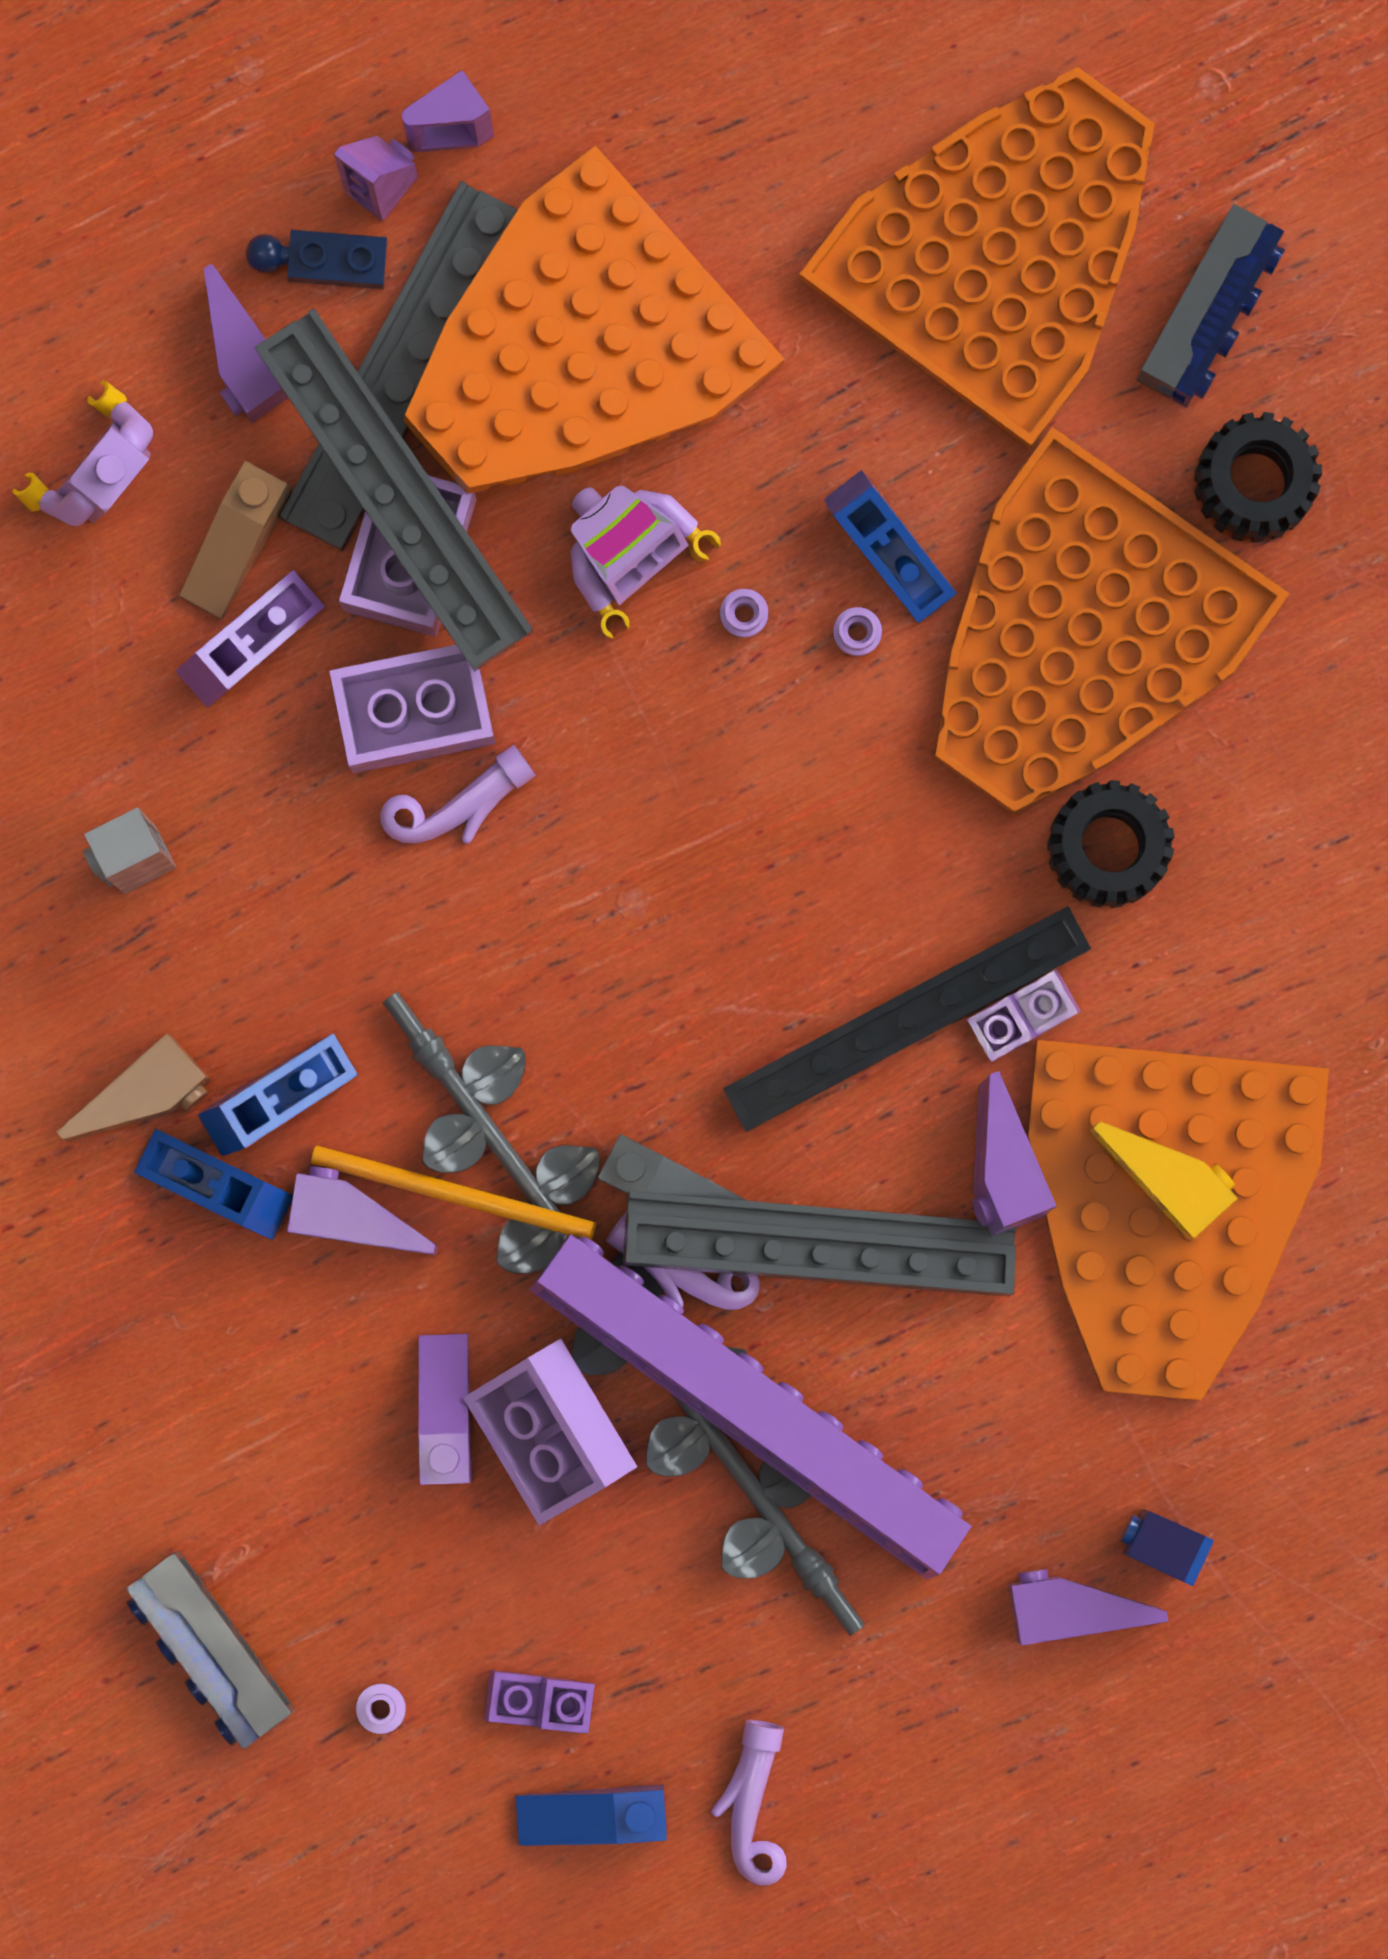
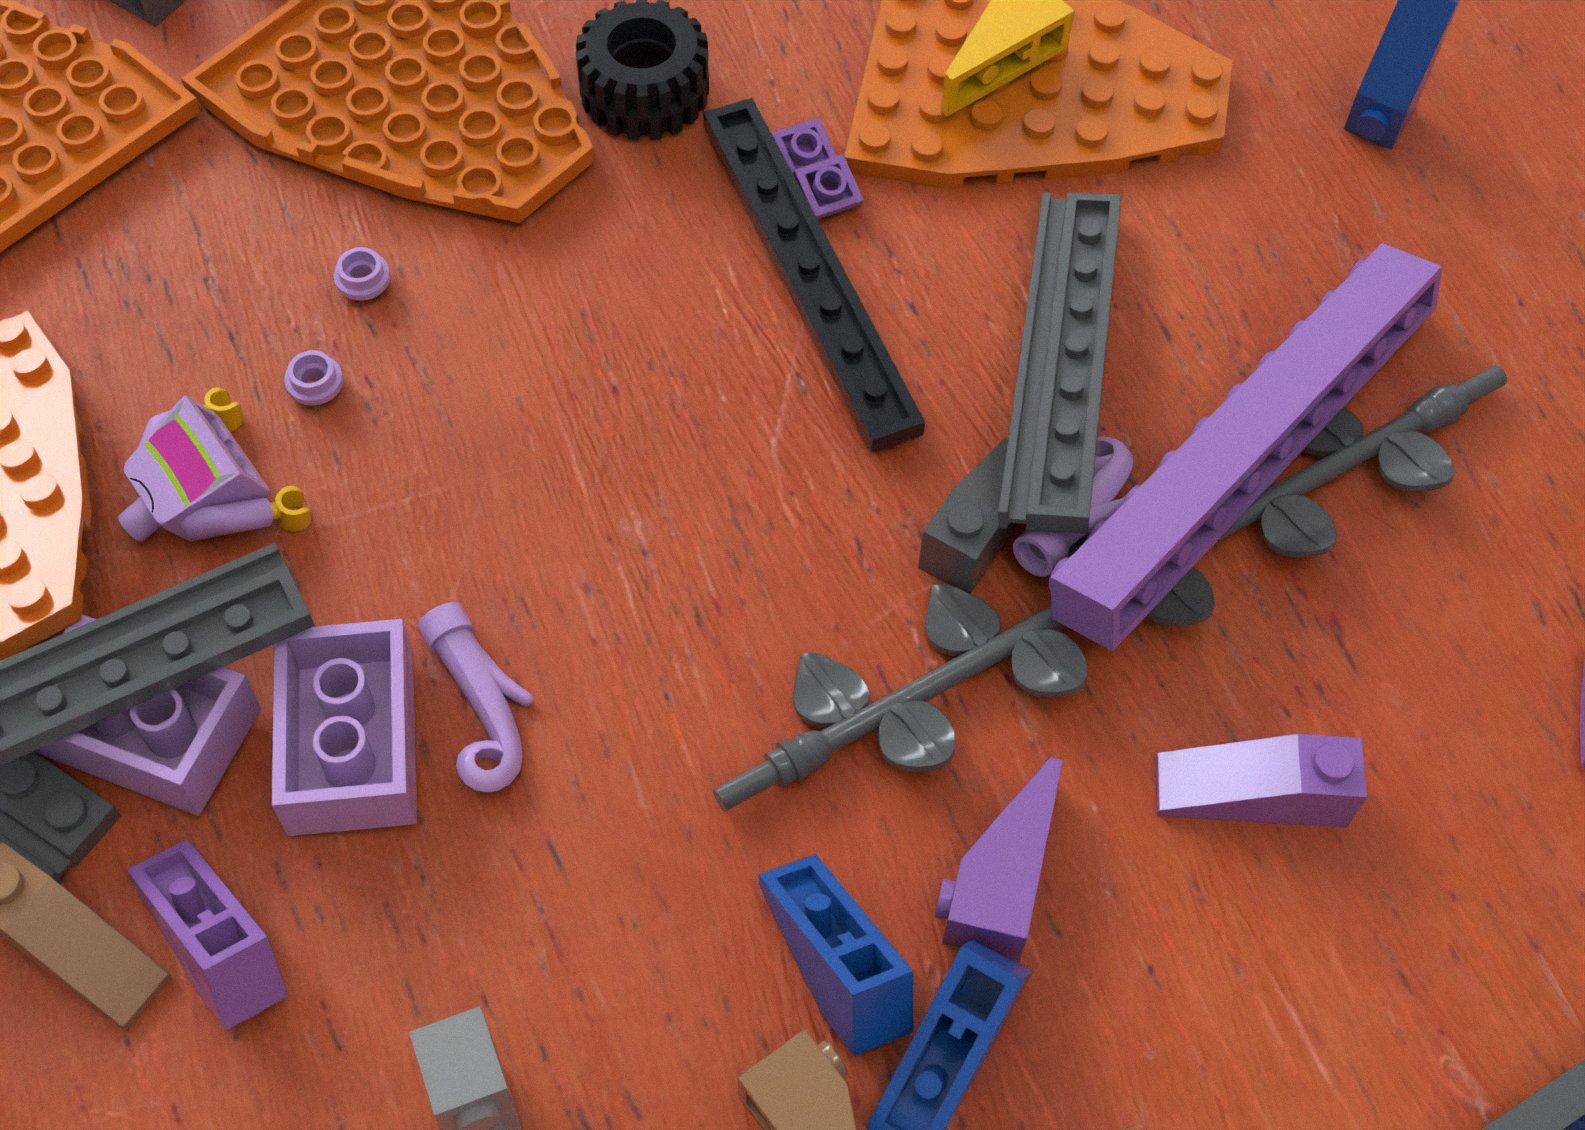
camera: 85 degrees left, 25 degrees down
(453, 1193) = (978, 747): light orange piece -> none
(550, 1432) = (1292, 644): lavender brick -> none
(889, 546) = (260, 232): blue slope -> none
(1006, 1172) = (974, 185): medium lavender slope -> none
(1063, 1608) = (1464, 192): medium lavender slope -> none

